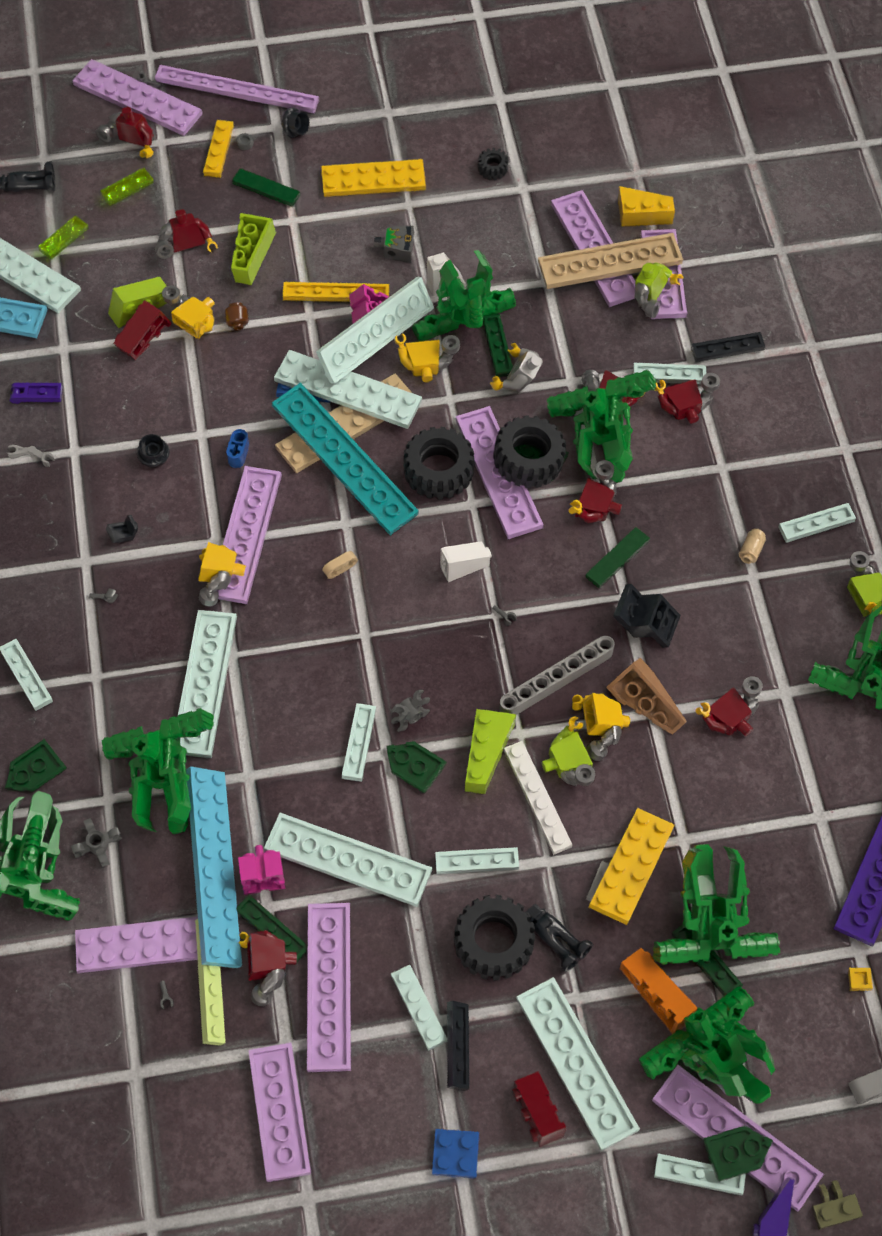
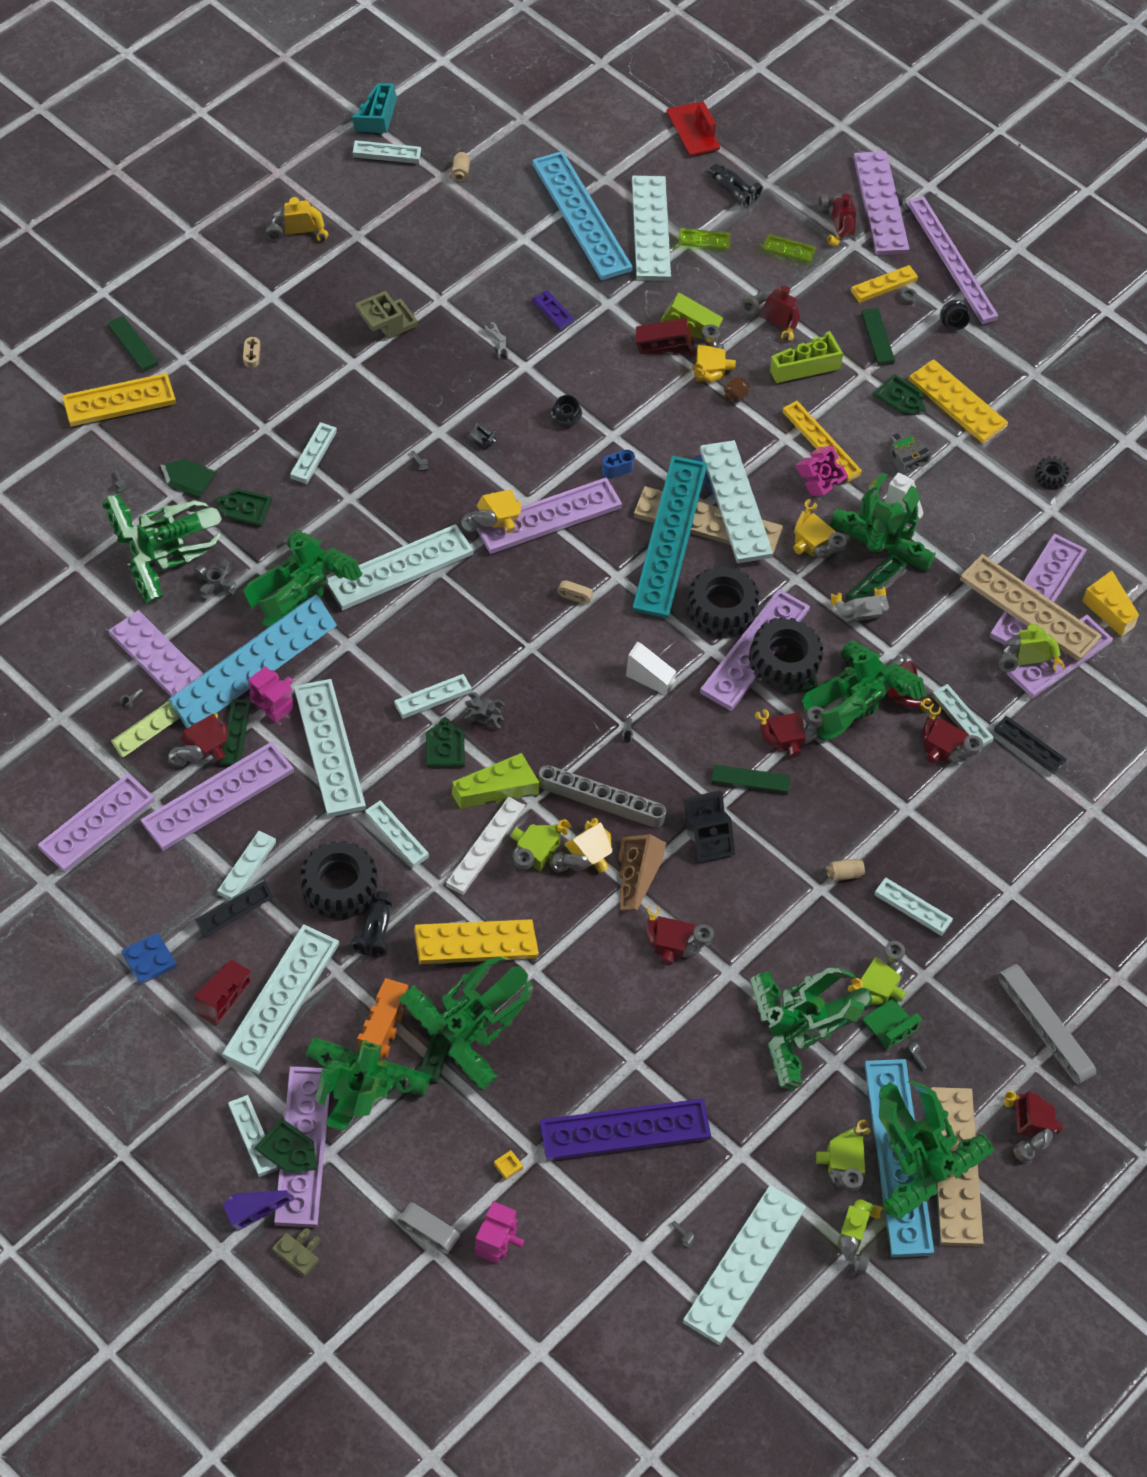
camera: 50 degrees right, 5 degrees down
(337, 210) = (901, 396): none -> dark green tile
(375, 330) = (798, 481): light aqua plate -> none

